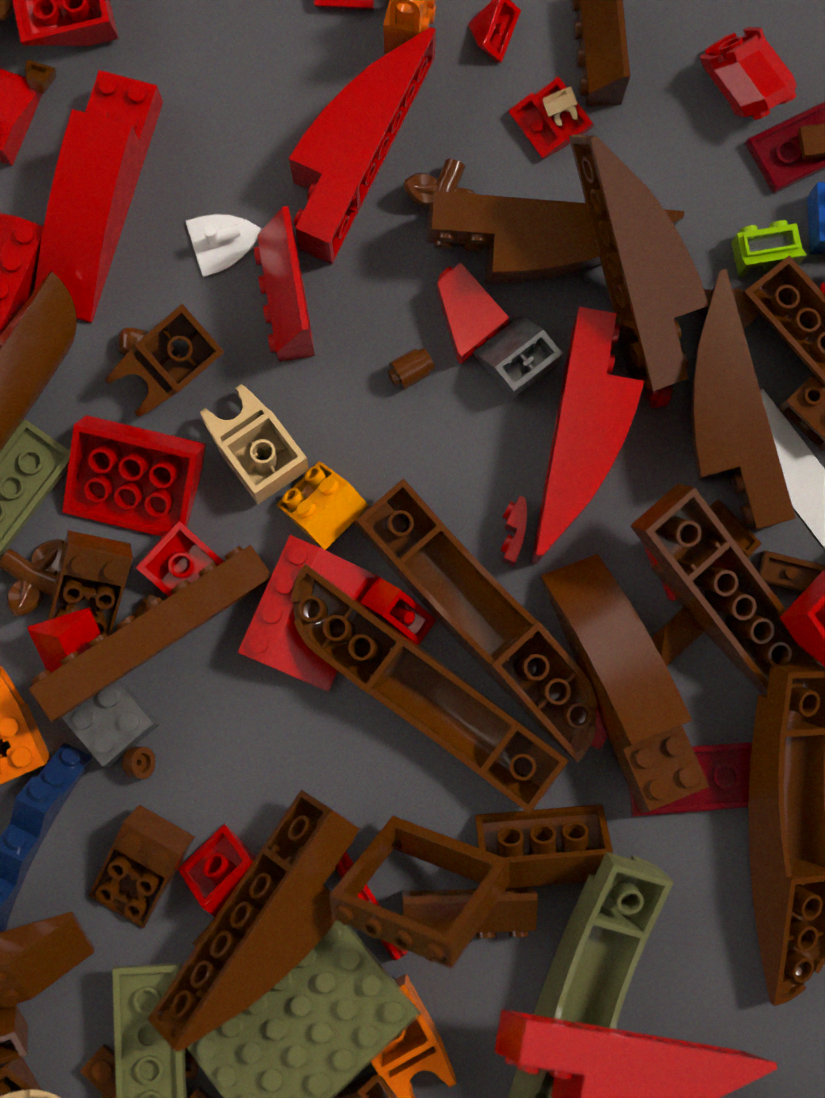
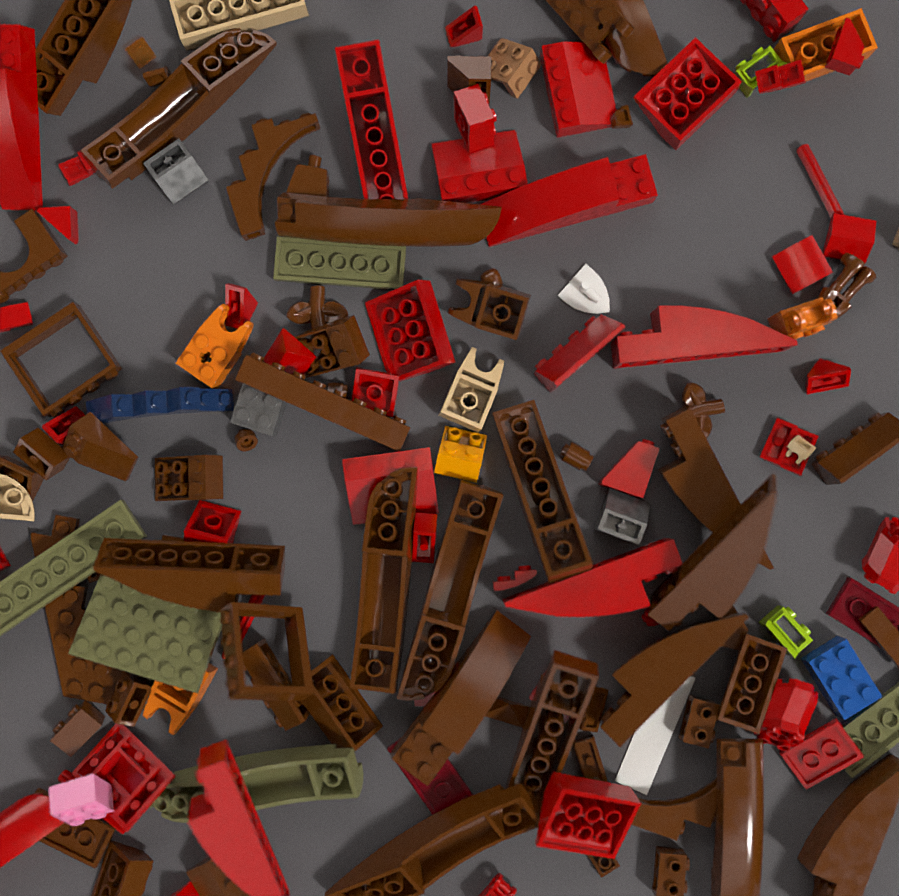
camera: 60 degrees right, 5 degrees up
(429, 431) = (542, 492): none -> reddish brown slope

